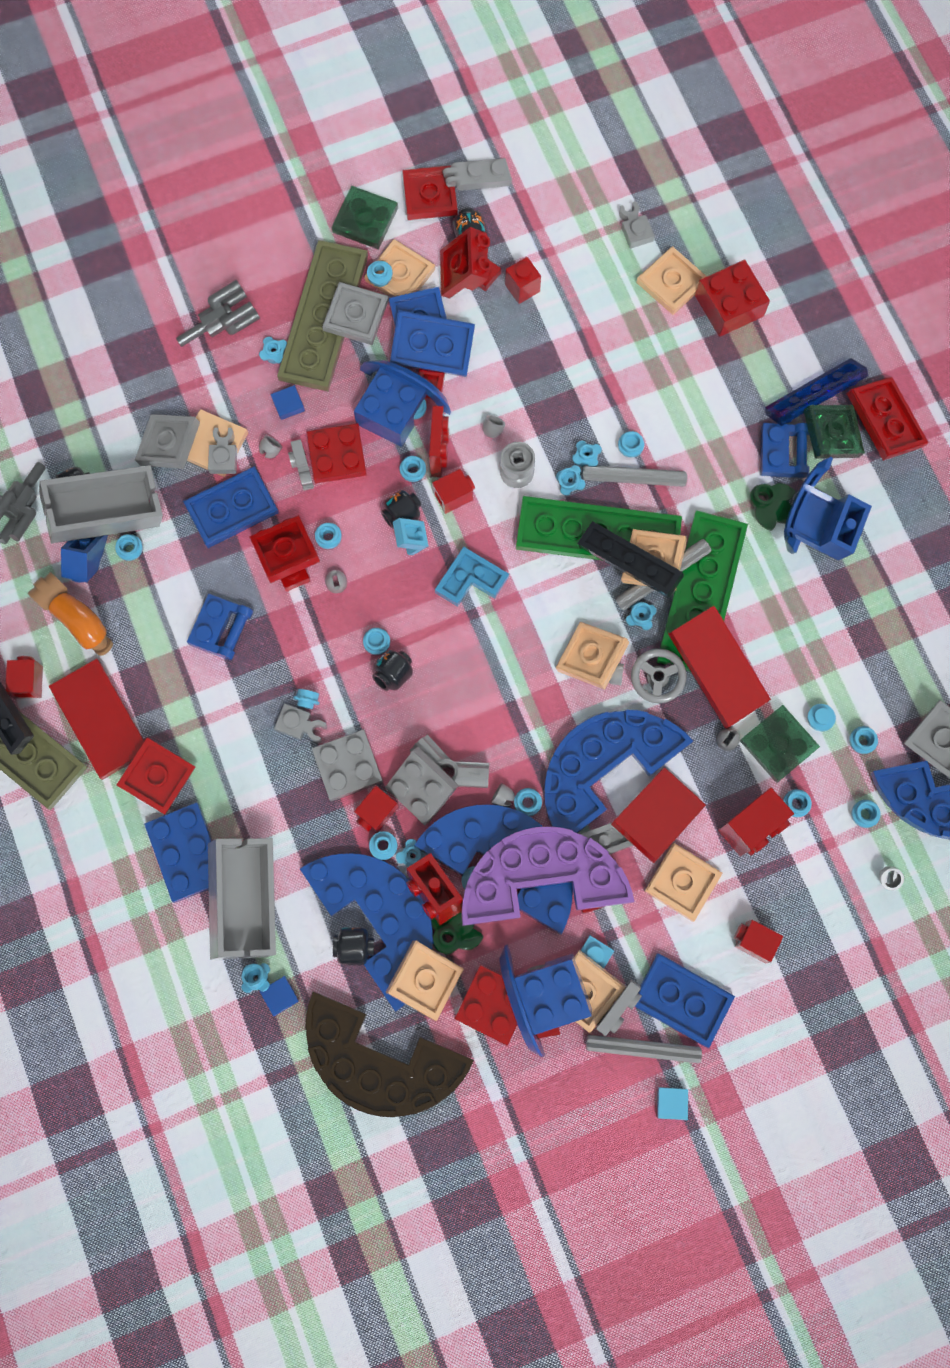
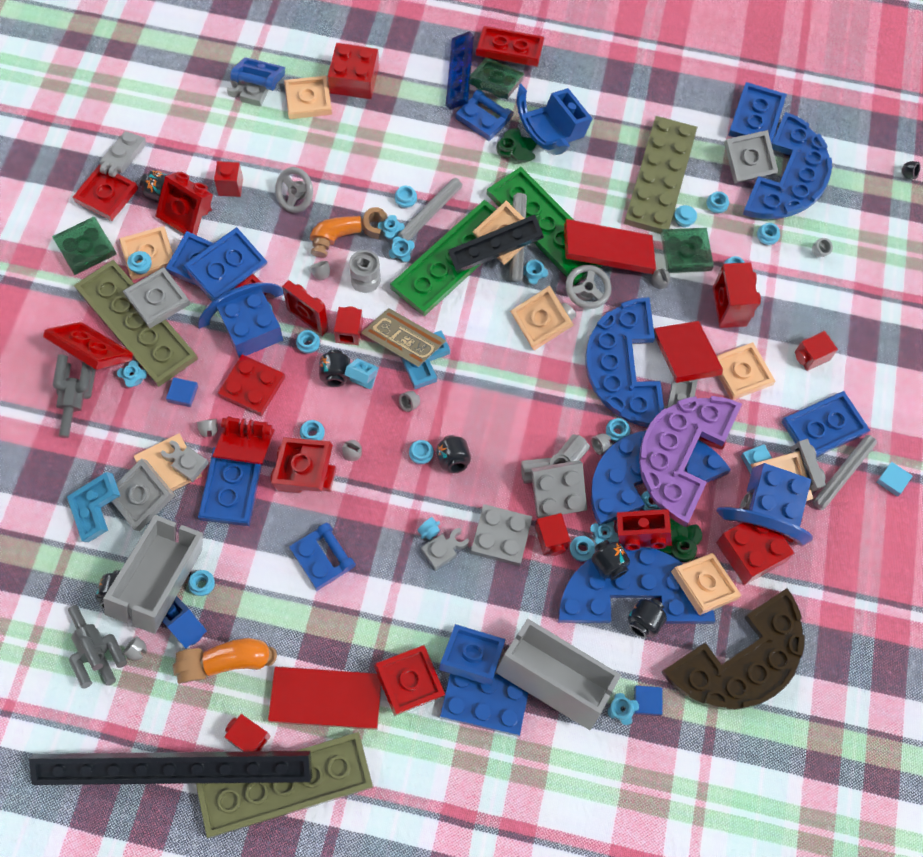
camera: 60 degrees left, 10 degrees down
(38, 537) = (134, 648): none -> light grey hinge
(130, 407) = (87, 505): none -> dark azure plate
(213, 813) = (472, 654): none -> blue plate
(266, 295) = (88, 345): none -> red tile
(274, 486) = (243, 441): none -> red hinge
(298, 459) = (240, 410): light grey plate -> none
(379, 877) = (610, 560): none -> black head
(419, 596) = (407, 398): none -> light grey hinge
(477, 546) = (403, 337): none -> sticker
(540, 405) = (330, 229): none -> piece
(558, 343) = (296, 190): none -> light grey piece
(663, 215) = (257, 73): none -> blue plate
(854, 663) = (661, 175): none -> olive plate

